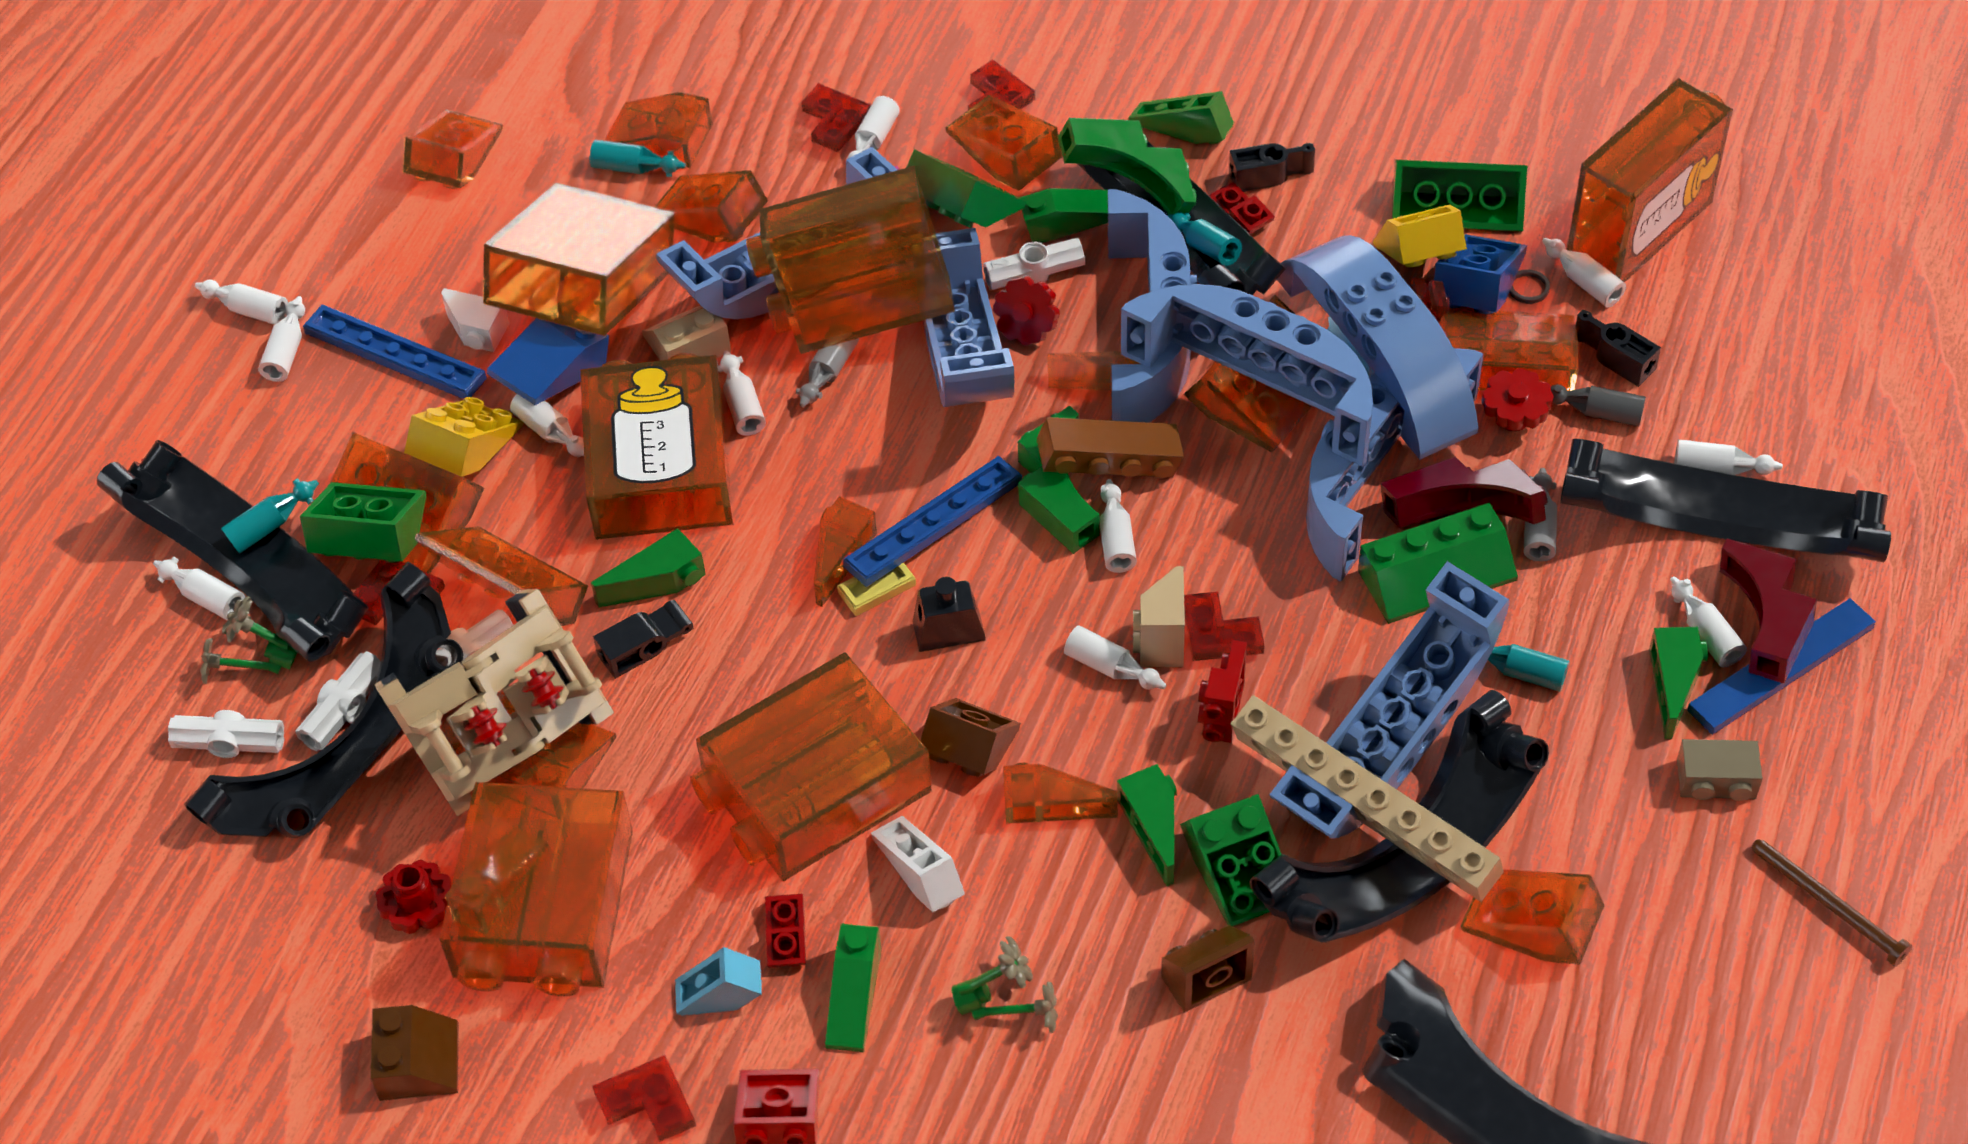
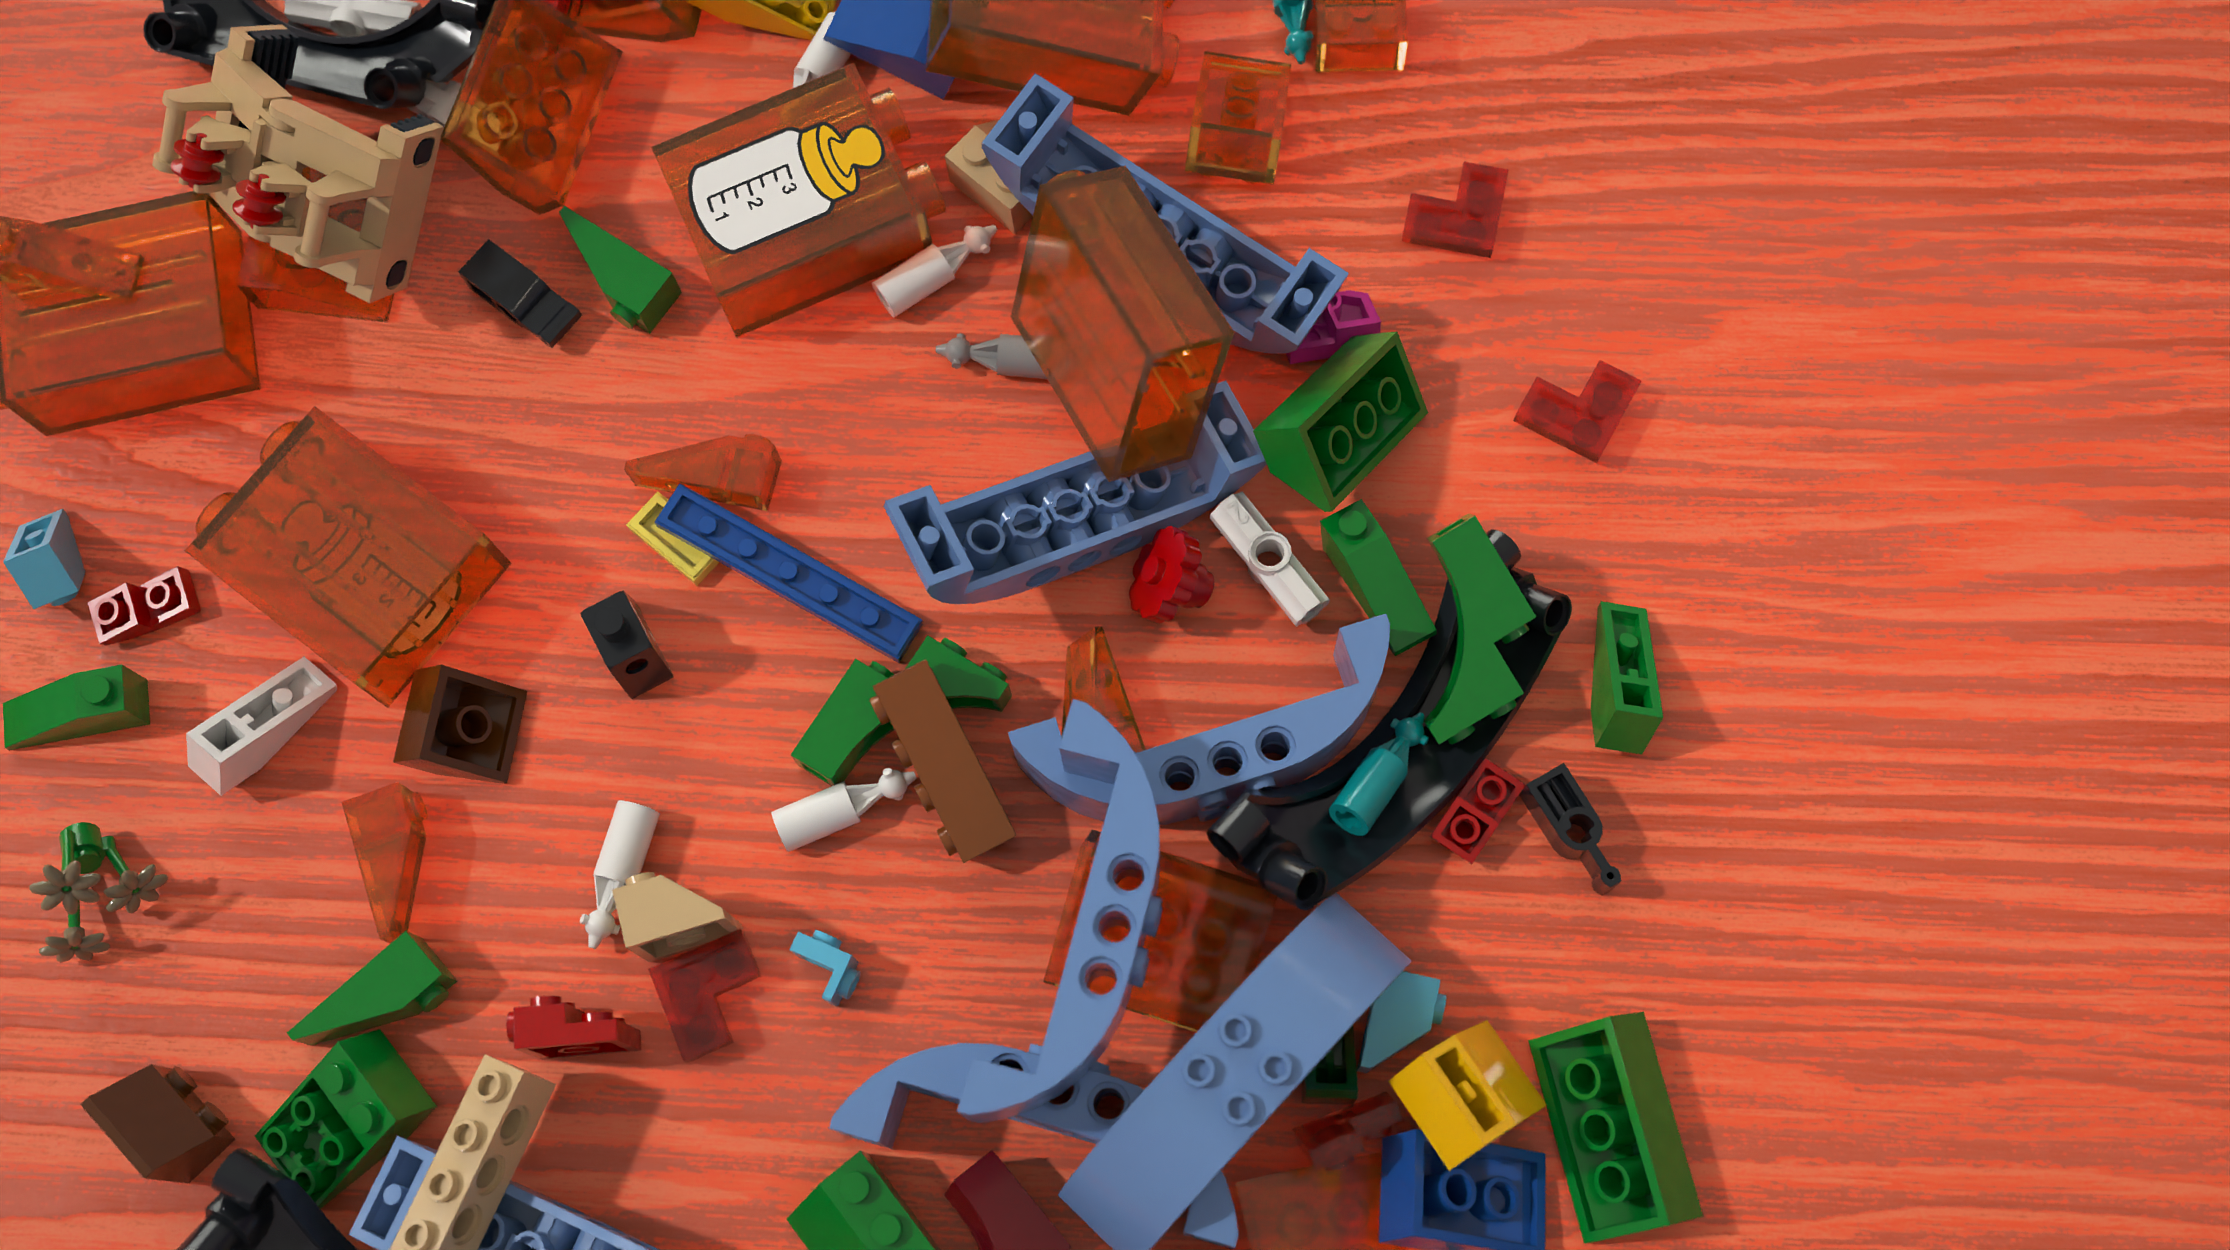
camera: 75 degrees right, 20 degrees up
(413, 896) = (108, 183): red plant -> none
(876, 124) = (1445, 270): white wheel -> none
(1006, 141) = (1480, 445): clear orange slope -> none
(1221, 551) = (824, 952): none -> medium azure bracket

